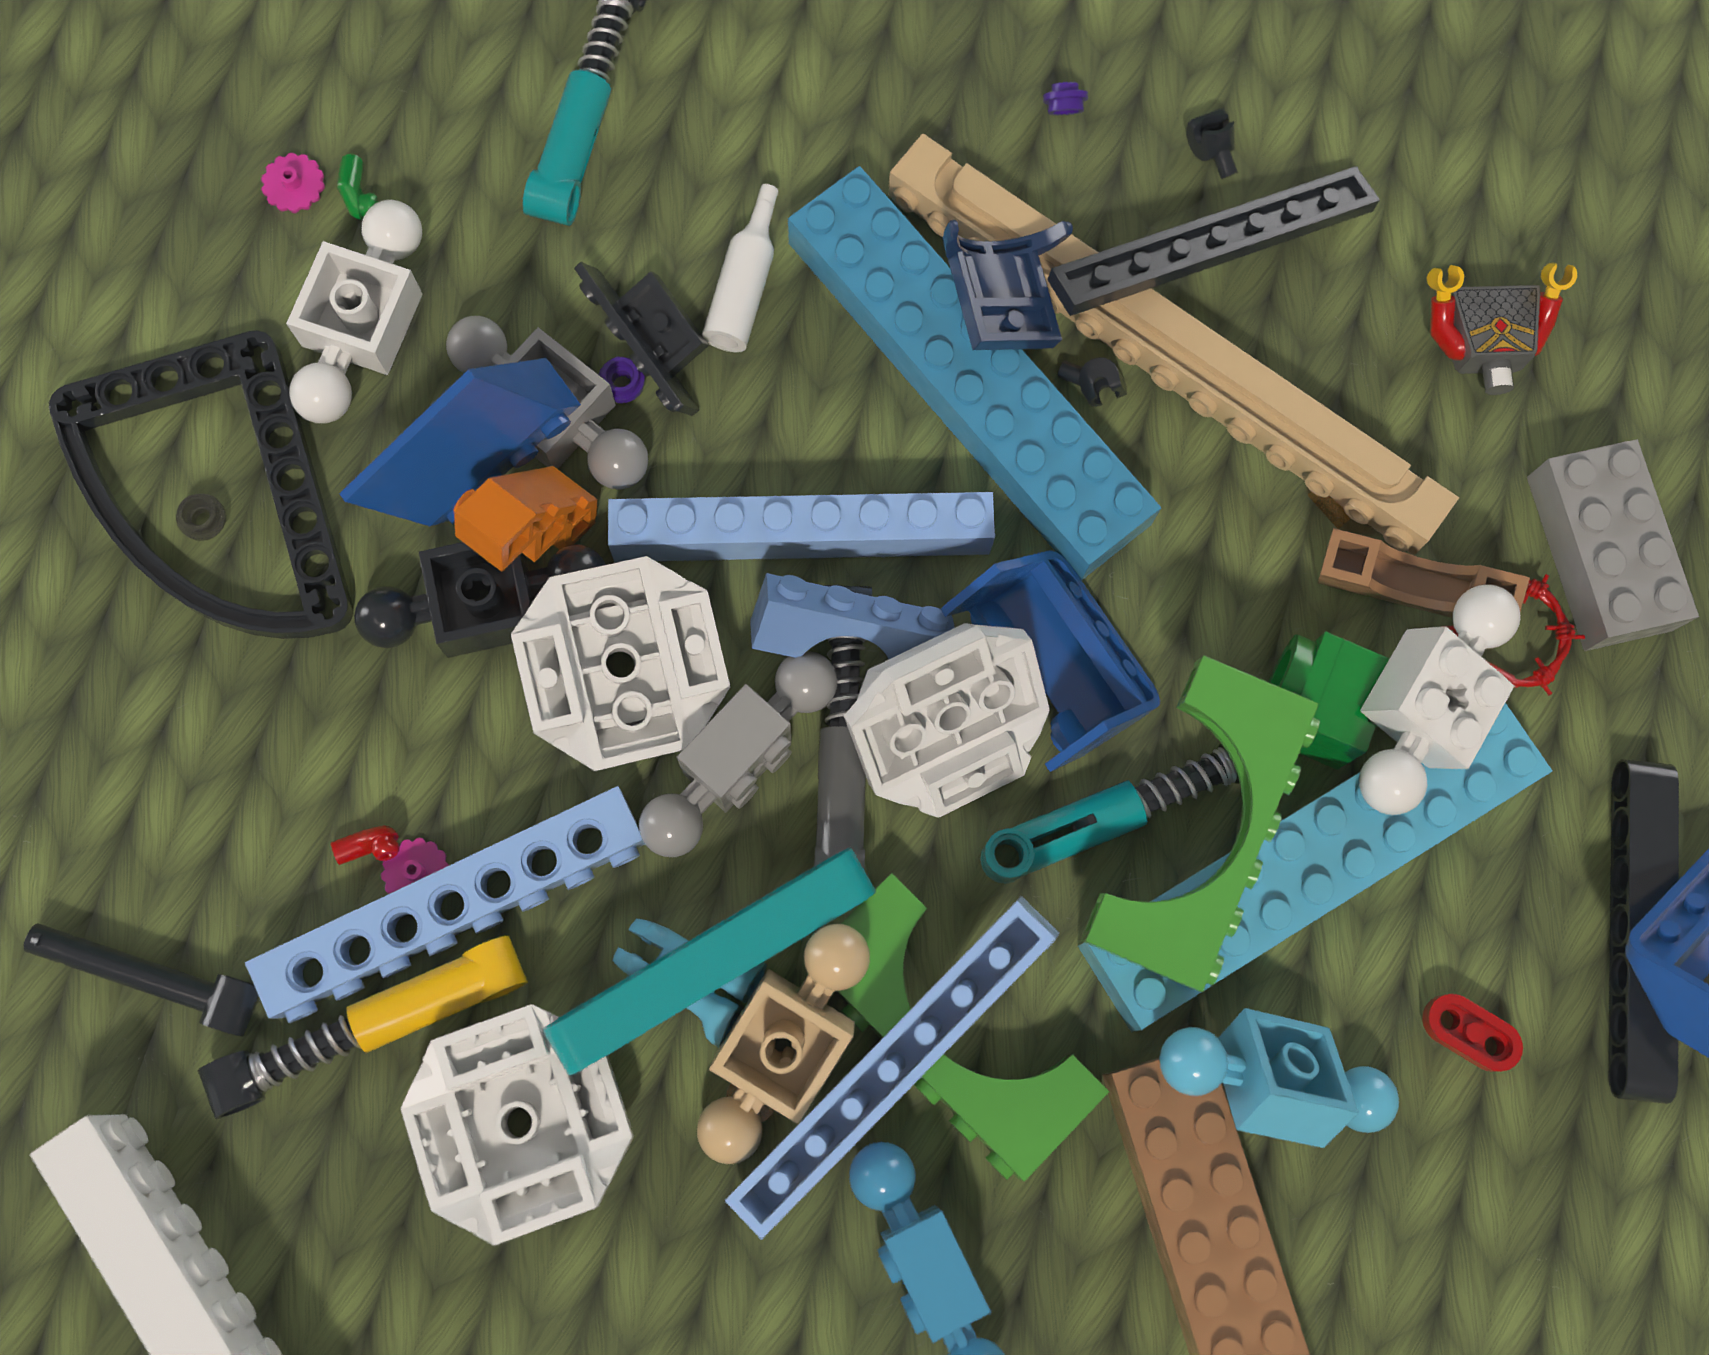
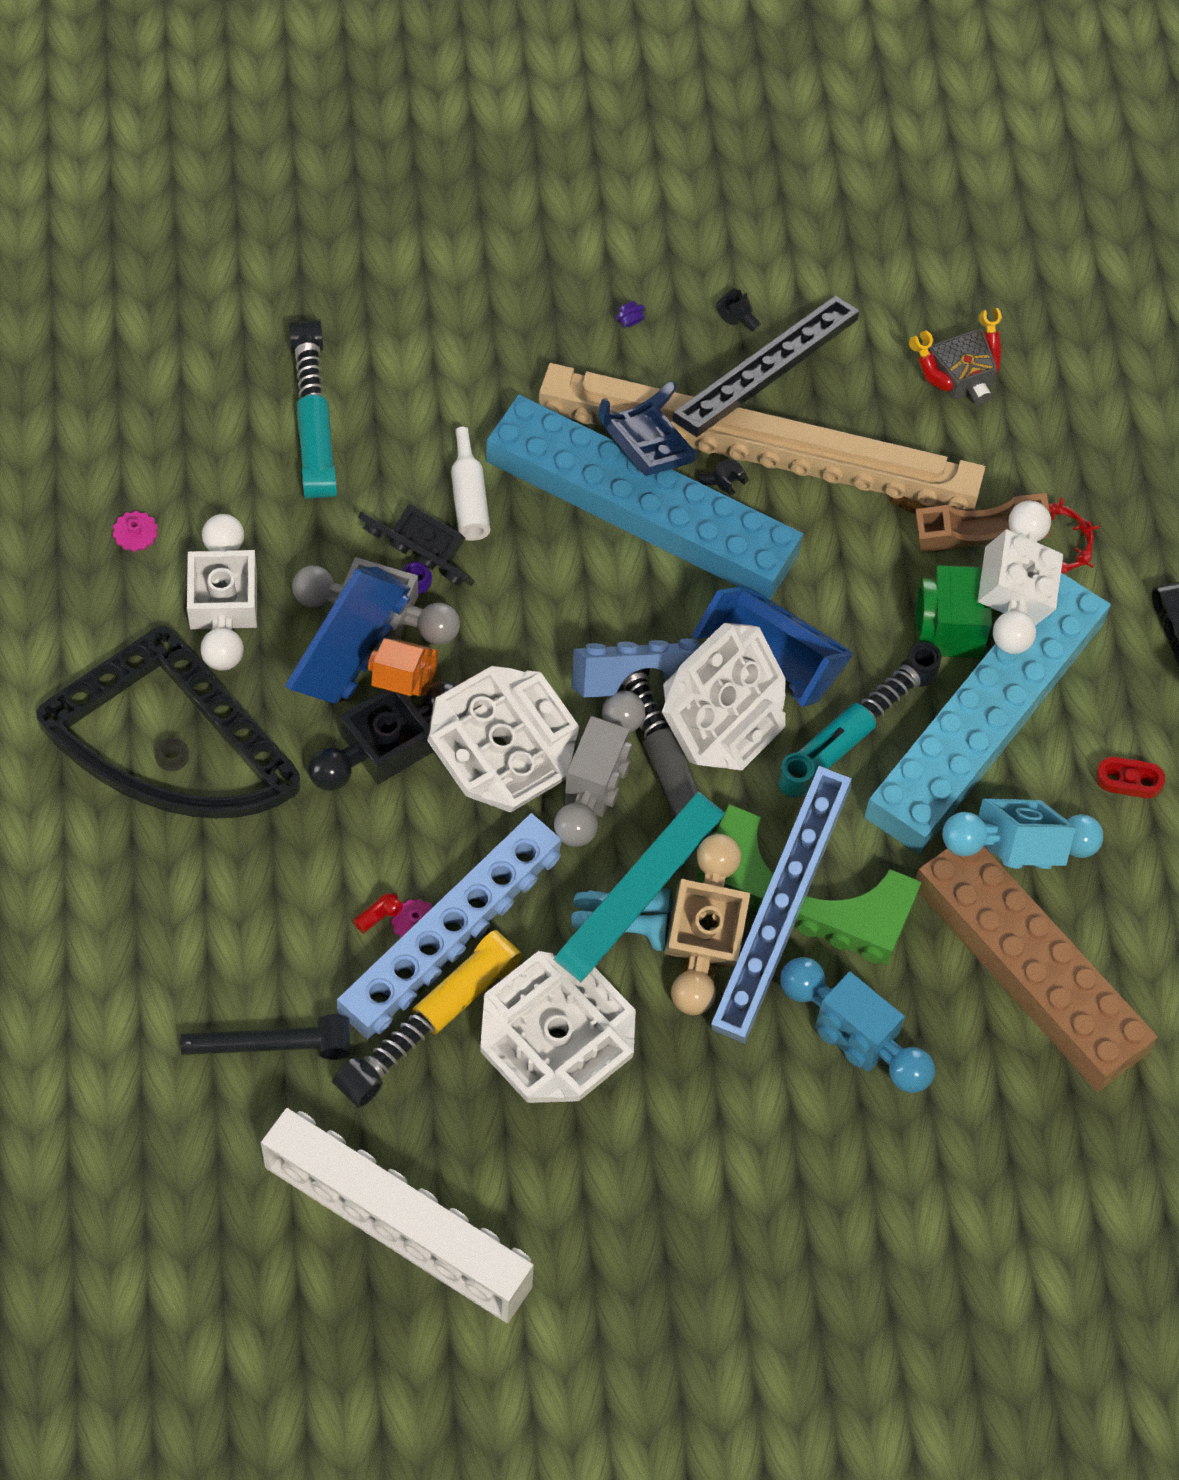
camera: 20 degrees left, 15 degrees down
(350, 186) = (187, 528): green arm -> none
(801, 526) = (580, 623): light blue brick -> none
(1263, 736) = (924, 633): bright green arch -> none
(1611, 545) = (1092, 466): light grey brick -> none

